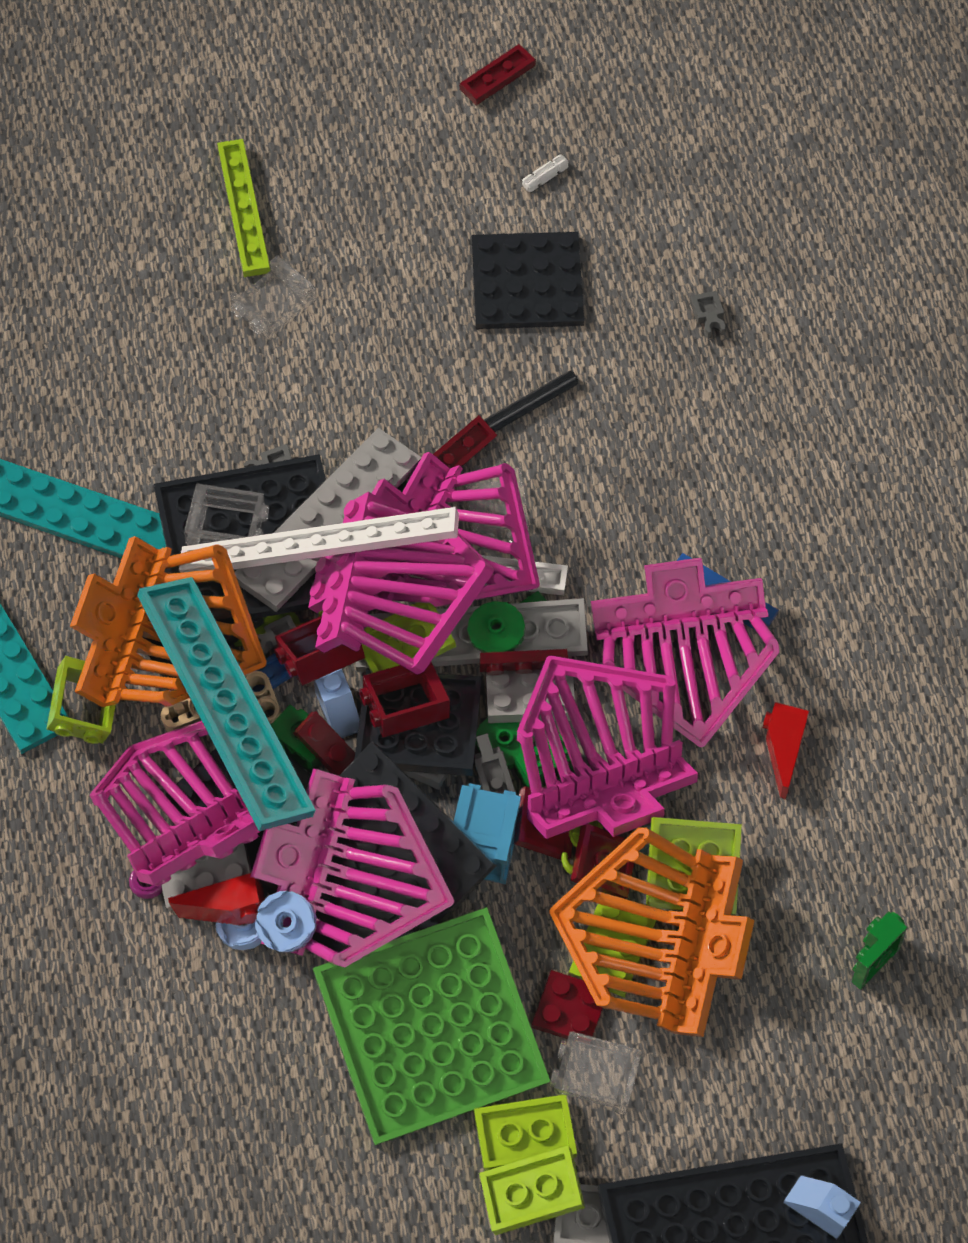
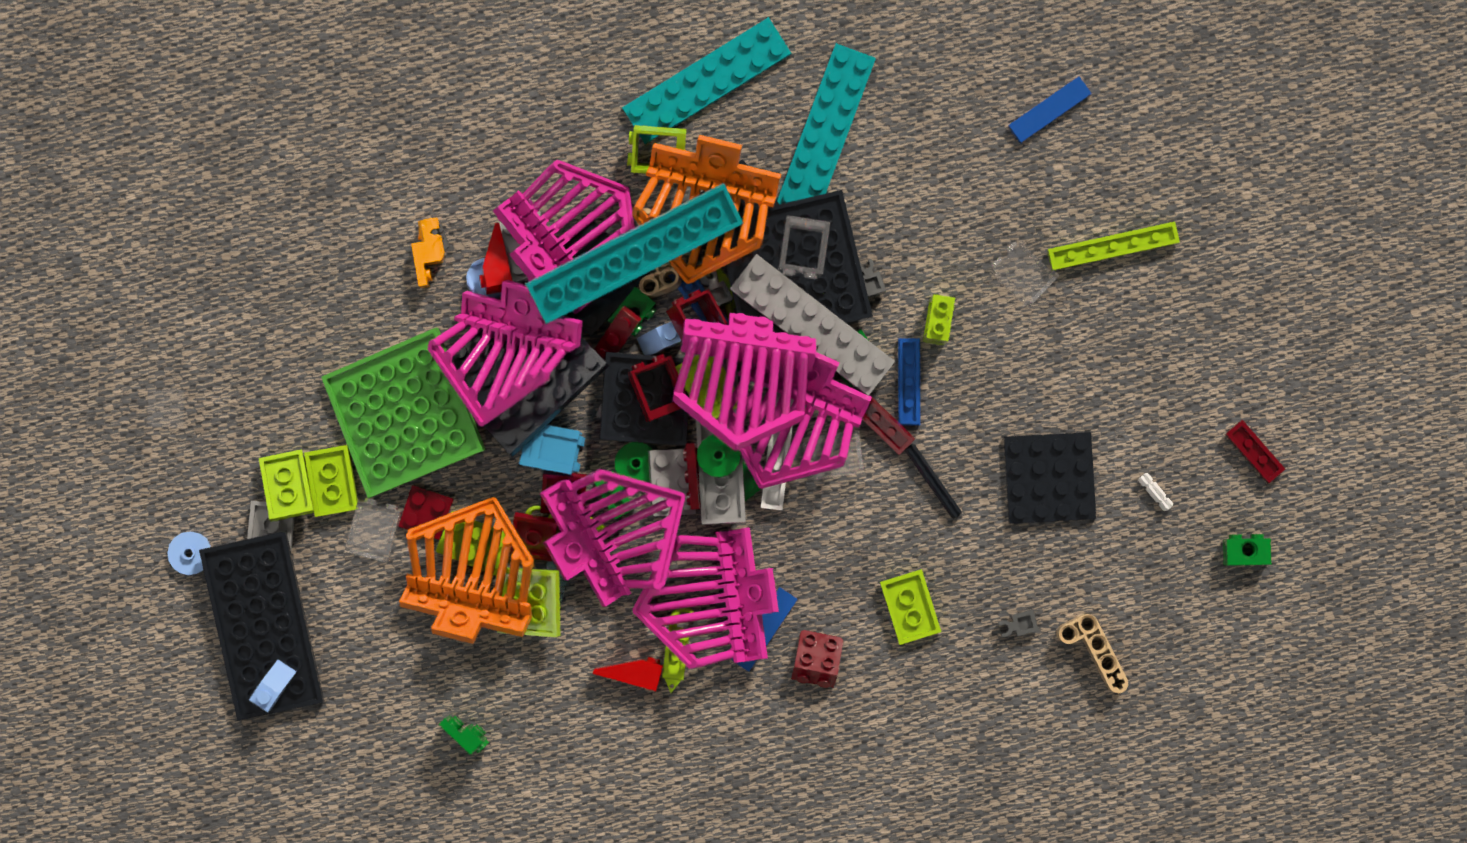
camera: 90 degrees right, 25 degrees up
(68, 271) = (1049, 109): none -> blue tile
(201, 996) = (430, 249): none -> light orange plate
(271, 916) = (464, 304): light blue plate -> none
(316, 391) = (937, 323): none -> lime window
(333, 539) = (768, 323): white plate -> none
(404, 425) = (909, 381): none -> blue tile
(492, 767) = (601, 456): dark grey hinge -> none
(616, 83) = (1259, 554): none -> green brick
(690, 427) = (910, 607): none -> lime plate
(715, 242) = (1098, 654): none -> tan beam
(760, 527) = (817, 659): none -> dark red bracket
(762, 694) = (673, 667): none -> lime plate

